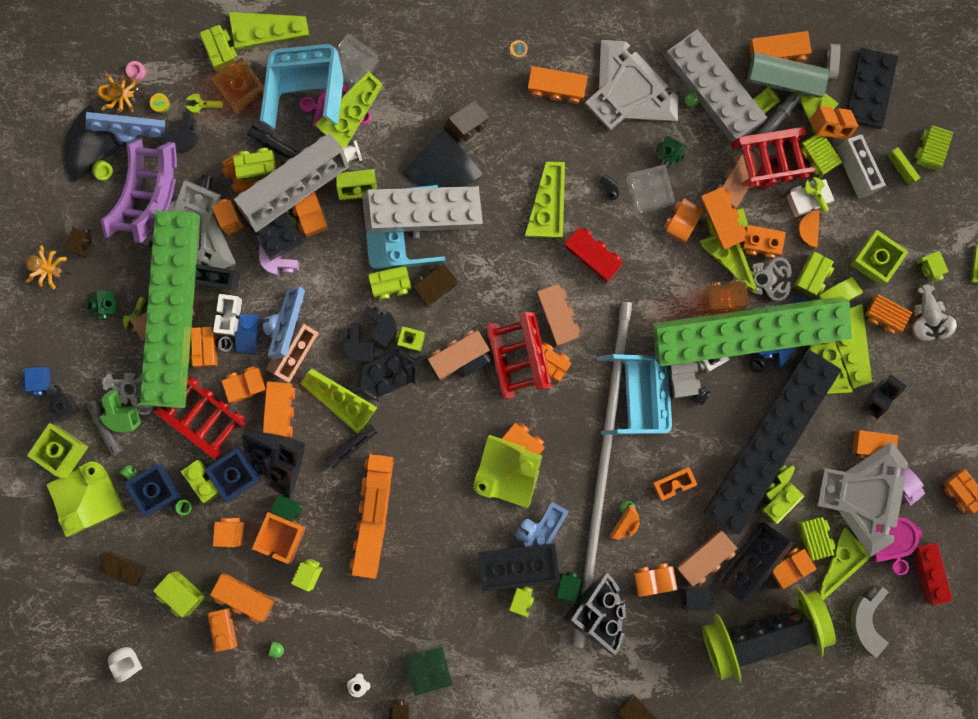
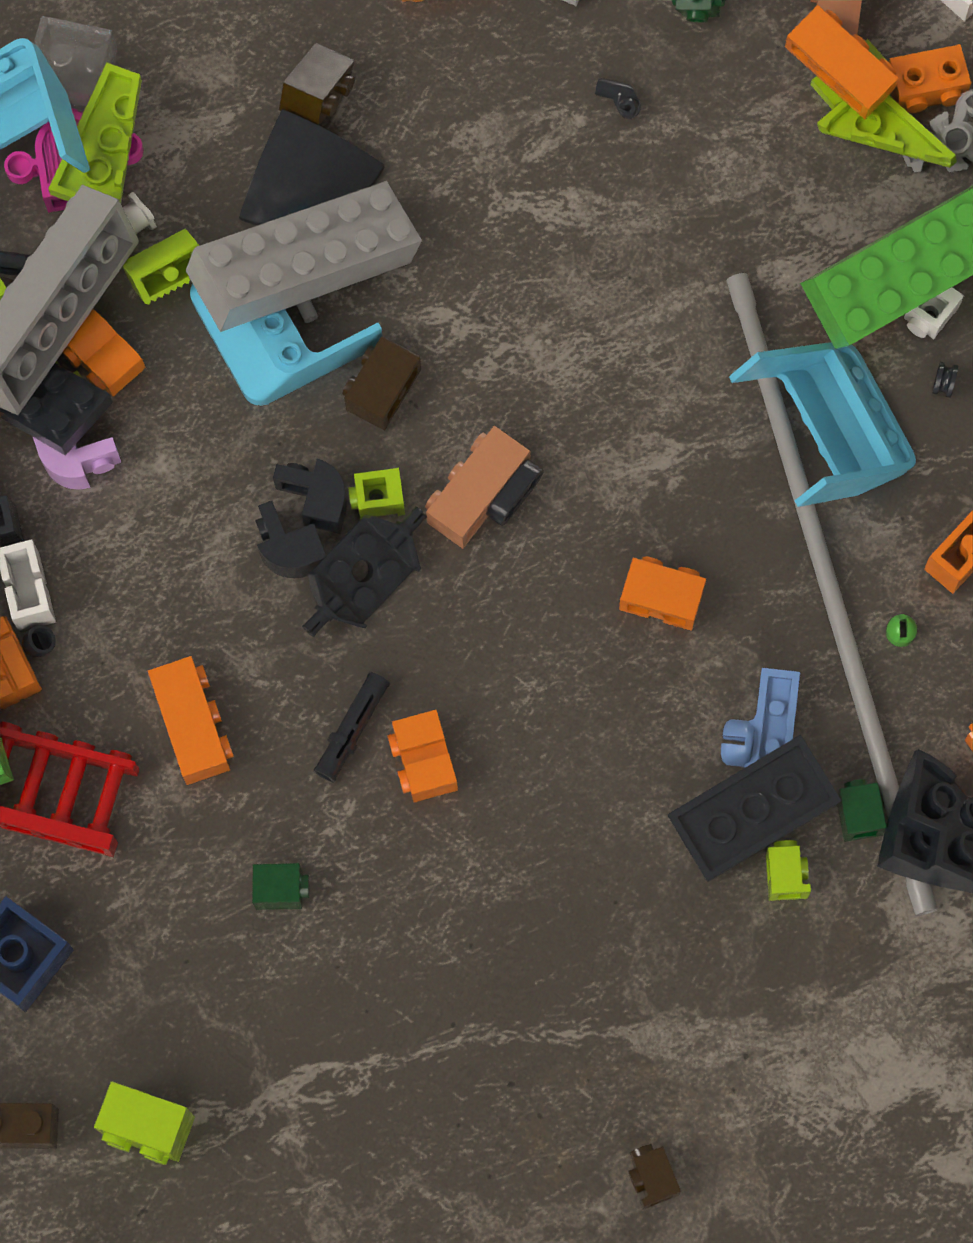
camera: 20 degrees left, 10 degrees down
(187, 508) = (93, 965): bright green hinge -> none
(198, 479) = (112, 912): lime brick -> none
(222, 630) = (252, 1158): orange brick -> none
(229, 533) = (192, 965): orange brick -> none
(233, 475) = (155, 864): dark blue brick -> none
(242, 598) = (266, 1085): orange brick -> none
(244, 385) = (109, 698): orange brick -> none
(247, 334) = (74, 608): blue slope -> none
(276, 458) = (220, 803): black brick -> none
(276, 650) = (370, 1156): bright green hinge -> none
(280, 537) = (288, 941): orange piece -> none
(282, 325) = (136, 555): medium blue plate -> none
(298, 348) = (170, 600): nougat brick -> none
(307, 575) = (370, 985): lime brick -> none
(342, 402) = (301, 653): lime wing -> none
(358, 679) = (556, 1169): white brick -> none
(367, 549) = (460, 893): orange brick -> none
(375, 501) = (440, 795): orange brick -> none
(390, 282) = (298, 411): lime brick -> none
(428, 671) = (671, 1068): clear green piece -> none
(507, 472) = (659, 649): lime slope -> none
(535, 352) = (621, 432): red fence -> none
(548, 208) = (525, 171): lime wing -> none
(556, 364) = (646, 433): orange brick -> none
(558, 315) = (625, 346): nougat brick -> none
(593, 254) = (641, 219): red brick -> none
(627, 524) = (915, 656): orange tile -> none
(650, 189) = (692, 68): clear piece -> none
(683, 379) = (896, 362): light grey brick -> none
(684, 220) = (774, 100): orange brick -> none
(725, 297) = (906, 190): clear orange brick -> none

